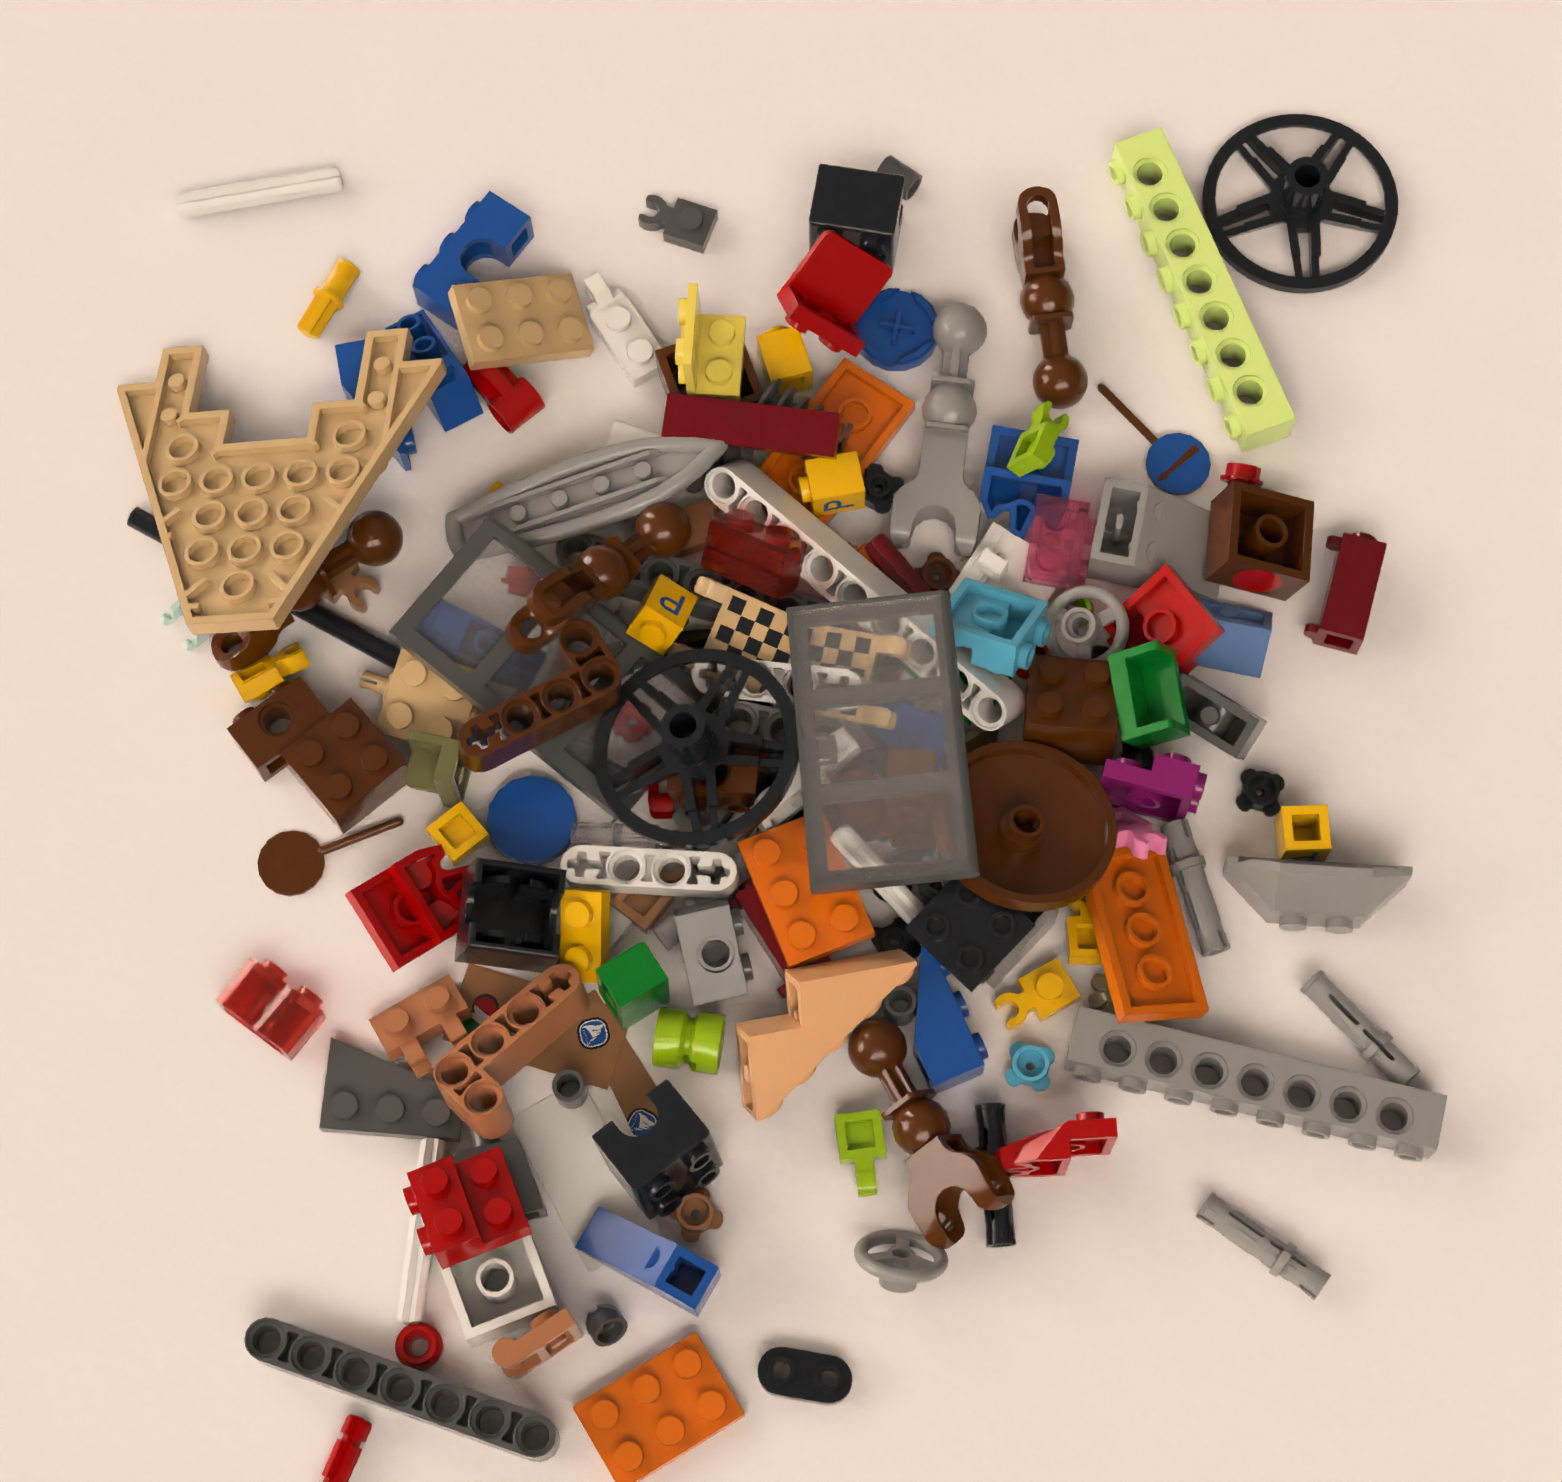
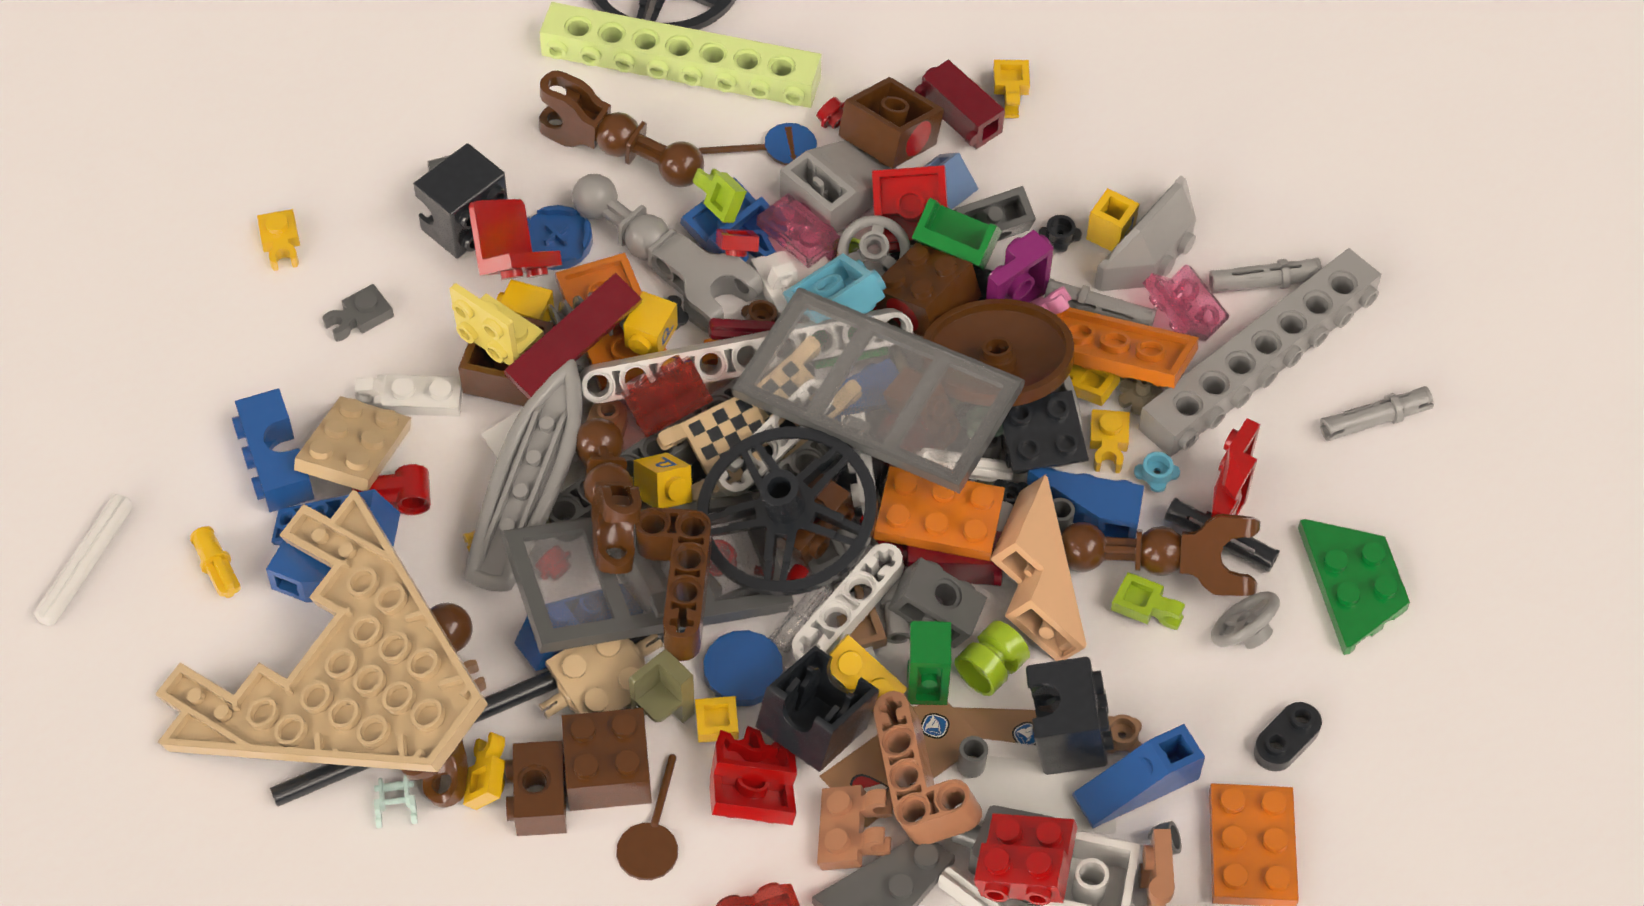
camera: 60 degrees left, 15 degrees down
(714, 91) = (279, 236): none -> yellow plate
(992, 494) = (737, 242): none -> red plate
(1038, 1340) = (1355, 579): none -> green wing
(1255, 970) = (1187, 303): none -> clear pink bracket
(1420, 620) = (1011, 80): none -> yellow plate

